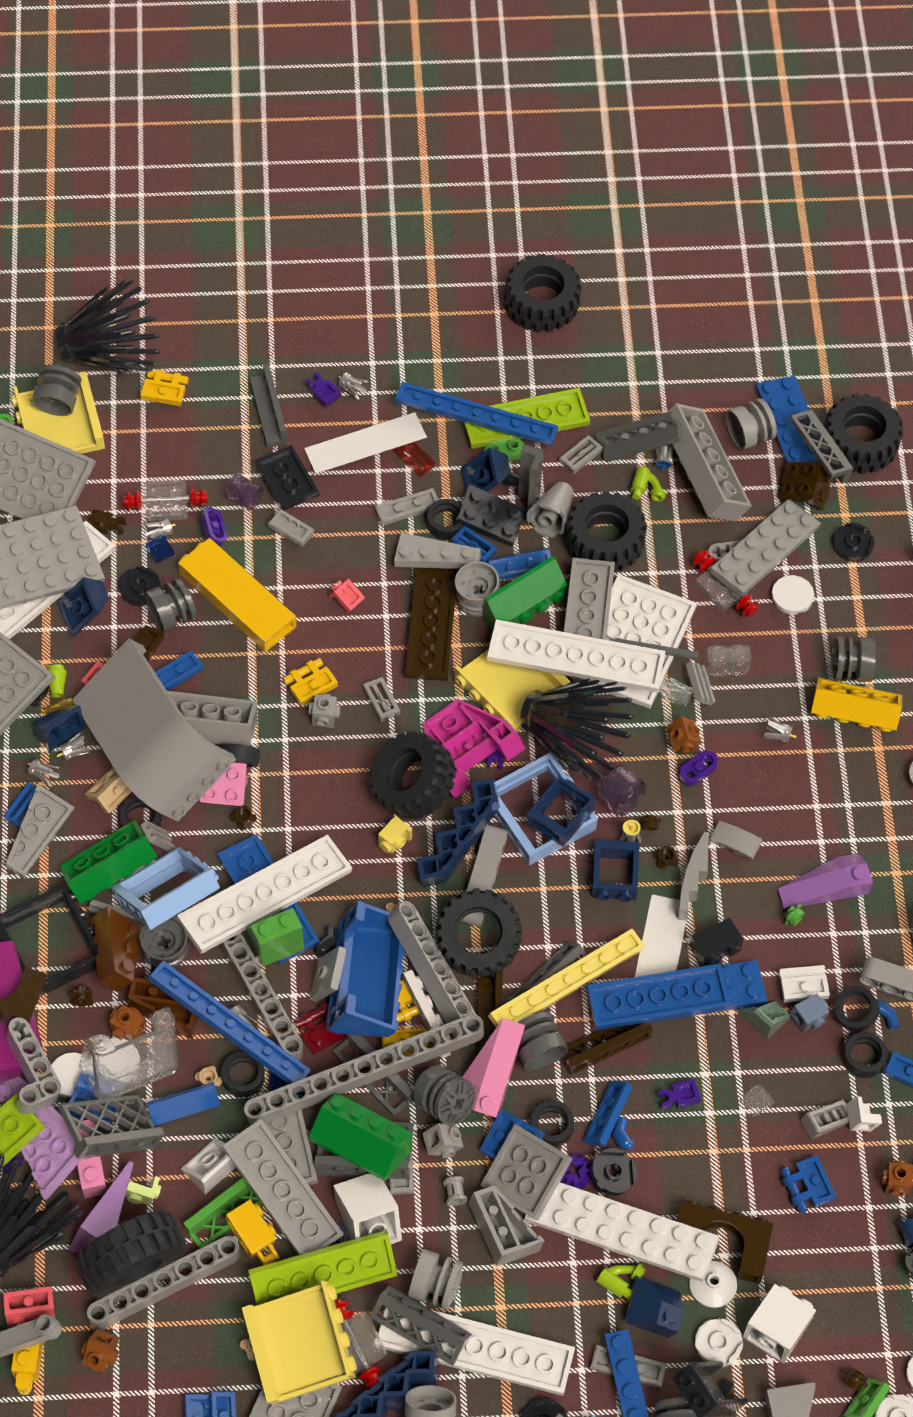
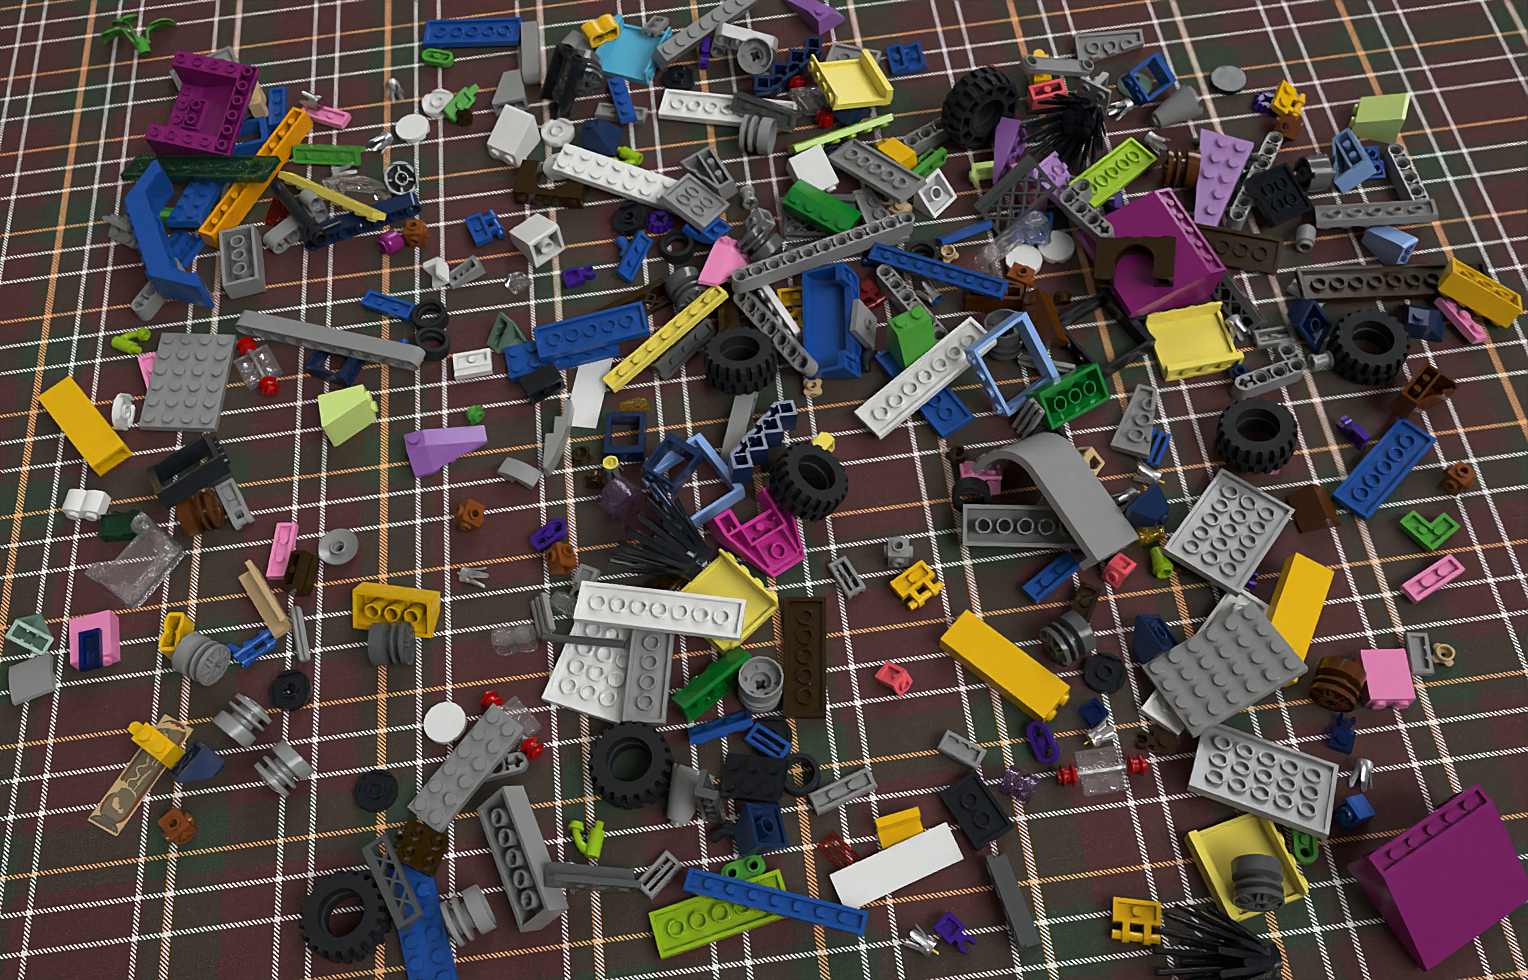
camera: 175 degrees left, 0 degrees up
(359, 472) = (898, 827): none -> yellow panel
(432, 553) = (814, 726): light grey wing -> none
(603, 908) = (636, 404): none -> clear yellow cone
(657, 716) = (584, 573): none -> light grey plate
(736, 1150) = (538, 239): none -> white slope
(788, 792) = (468, 515): none -> dark orange brick
(810, 1012) = (469, 339): sand blue brick -> none

